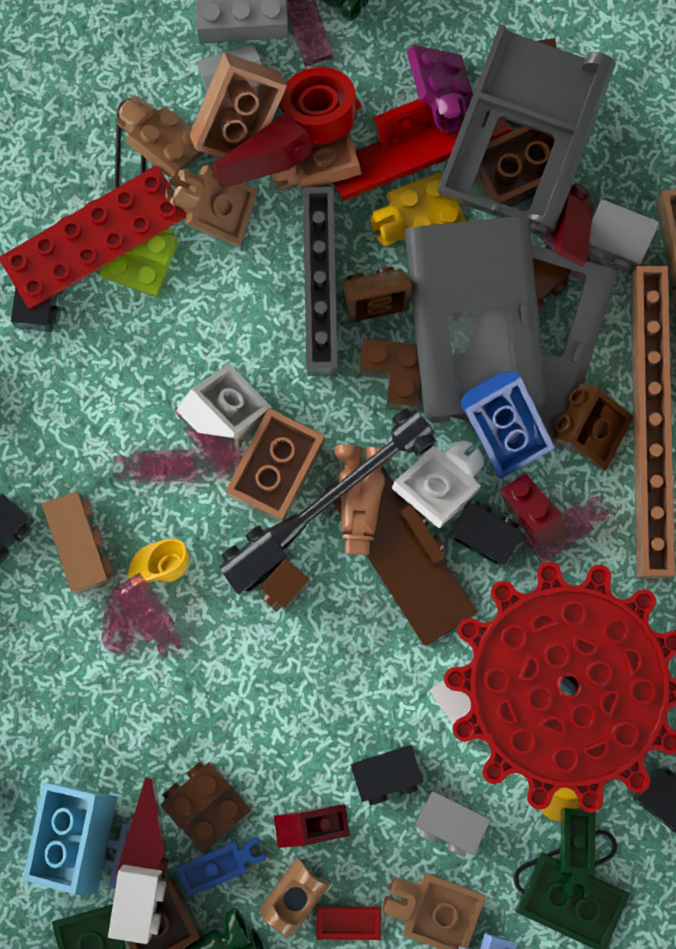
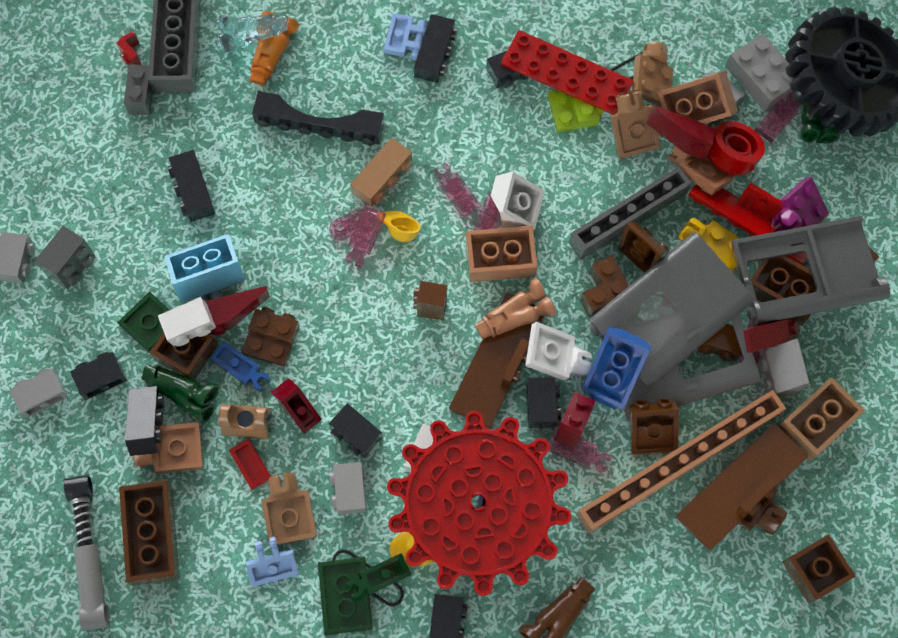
camera: 55 degrees right, 10 degrees down
(268, 548) = (570, 312): black bar -> none

